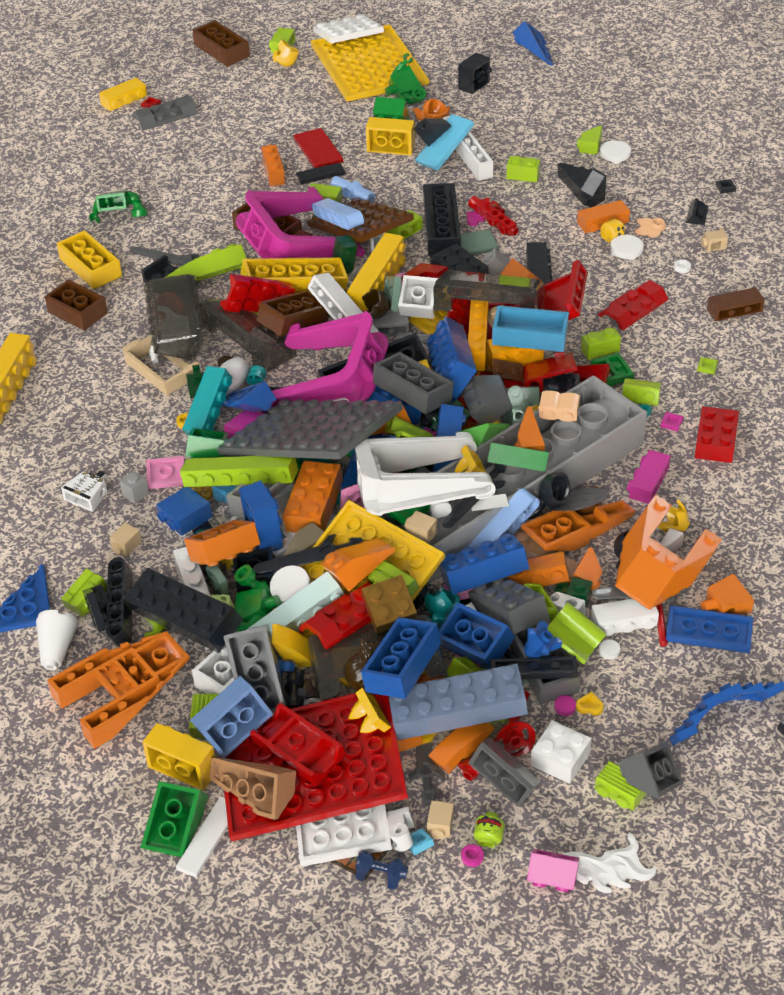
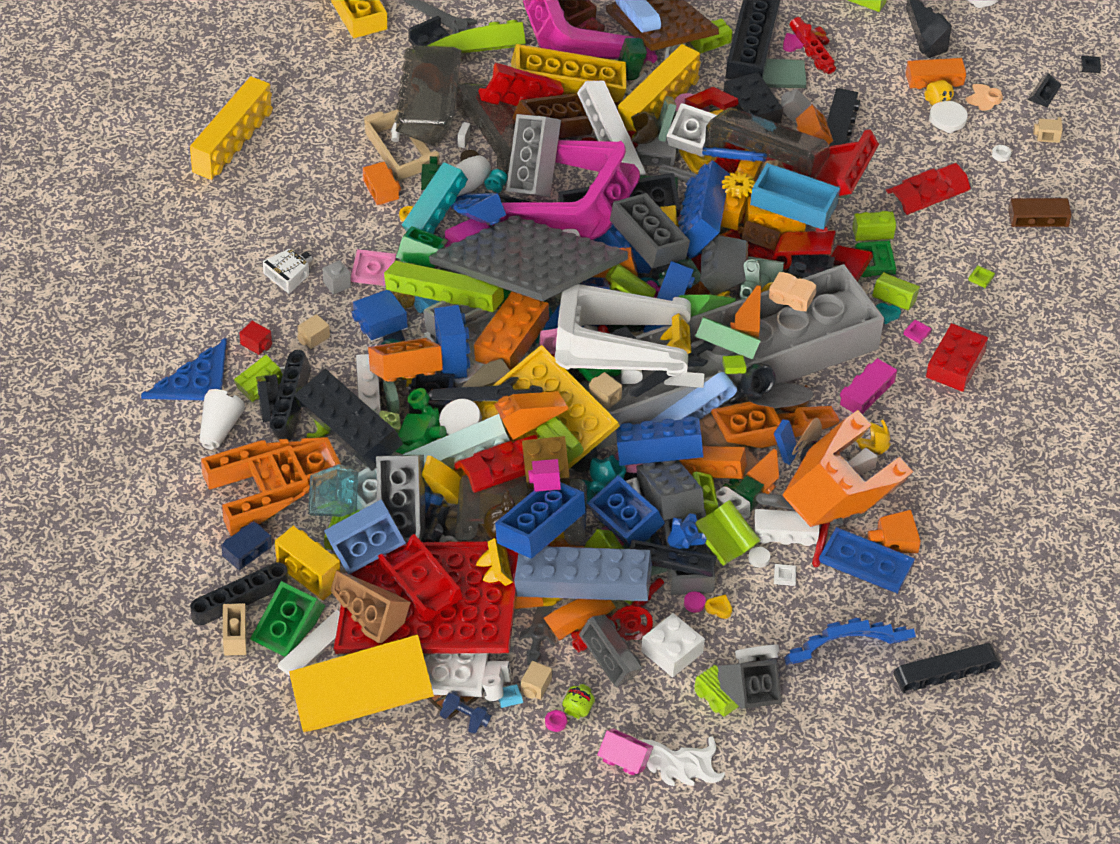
camera: 10 degrees right, 5 degrees up
(72, 557) = (256, 338): none -> red brick
(76, 304) = (329, 54): reddish brown brick -> none
(112, 754) = (246, 545): none -> dark blue brick
(116, 804) = (244, 590): none -> black beam
(123, 841) = (234, 629): none -> tan brick
(152, 399) = (381, 183): none -> orange brick
(187, 681) = (333, 492): none -> clear light blue slope
(215, 345) = (464, 134): none -> white tile
(267, 866) = (361, 683): none -> yellow tile
(286, 344) = (533, 155): none -> light grey brick
(395, 615) = (545, 475): none -> dark pink brick
(462, 307) = (734, 154): none -> blue piece
(469, 327) = (730, 184): none -> yellow gear
(530, 479) = (734, 364): none -> lime tile
(597, 539) = (786, 441): none -> blue tile
(618, 528) = (812, 433): none -> tan piece
(639, 660) = (785, 574): none -> white tile
(645, 740) = (765, 652): none -> white tile

